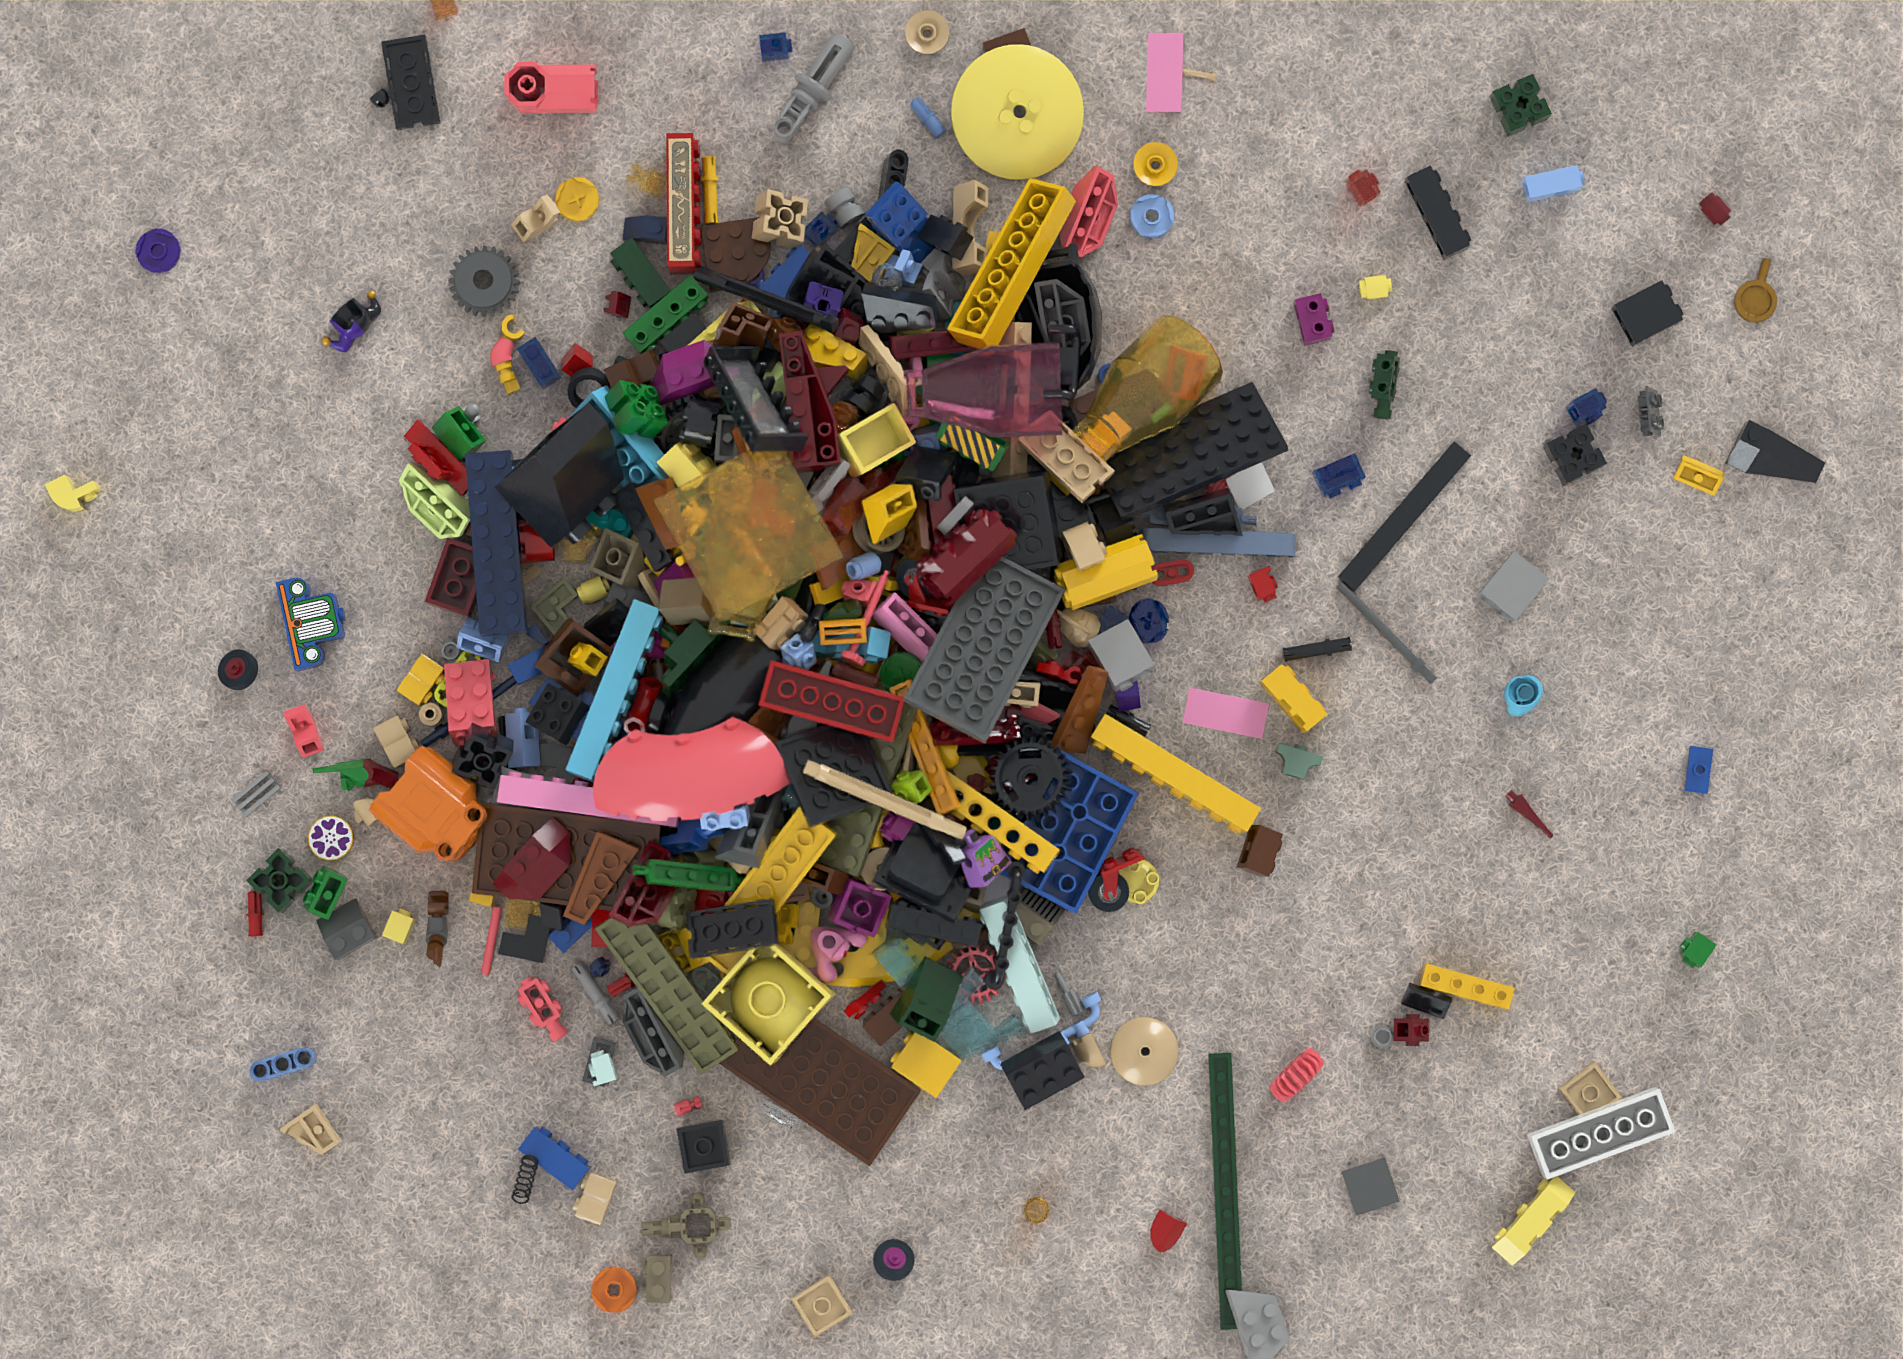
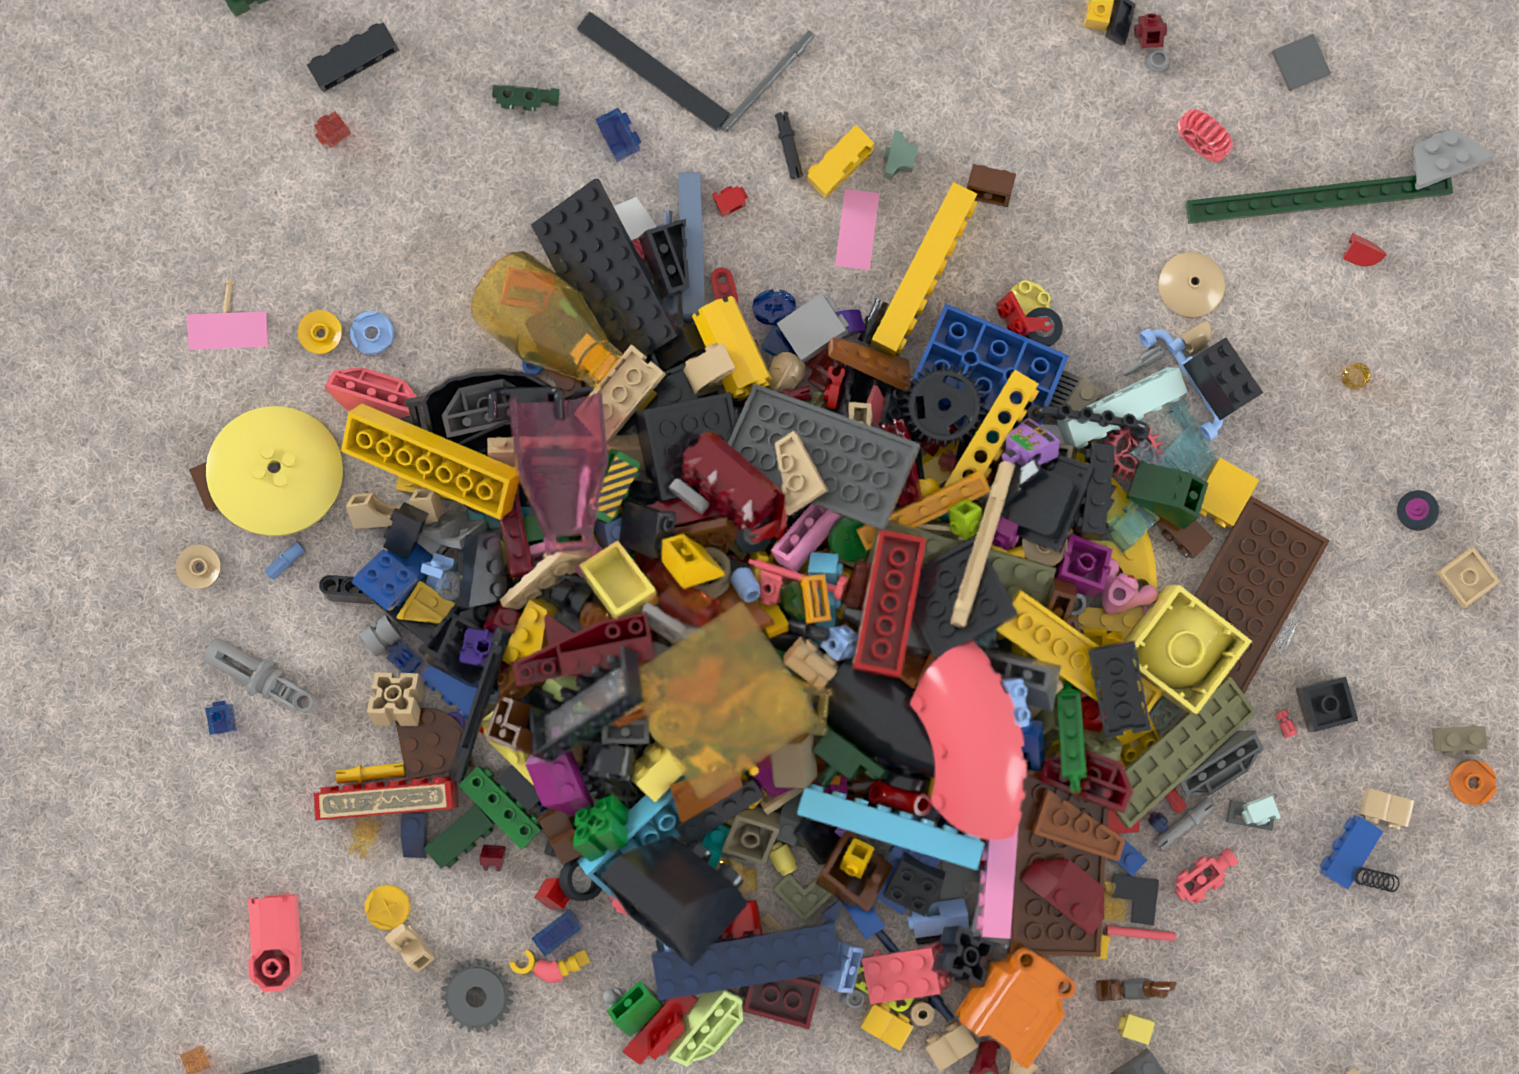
camera: 90 degrees left, 0 degrees up
(553, 916) = (1114, 872): black panel -> none
(677, 1225) = (1405, 725): dark tan piece -> none
(860, 1005) = (1175, 560): red plate -> none
(964, 624) = (798, 473): none -> tan wing
(1313, 319) = (465, 169): magenta brick -> none
(1375, 287) = (430, 112): light yellow brick -> none

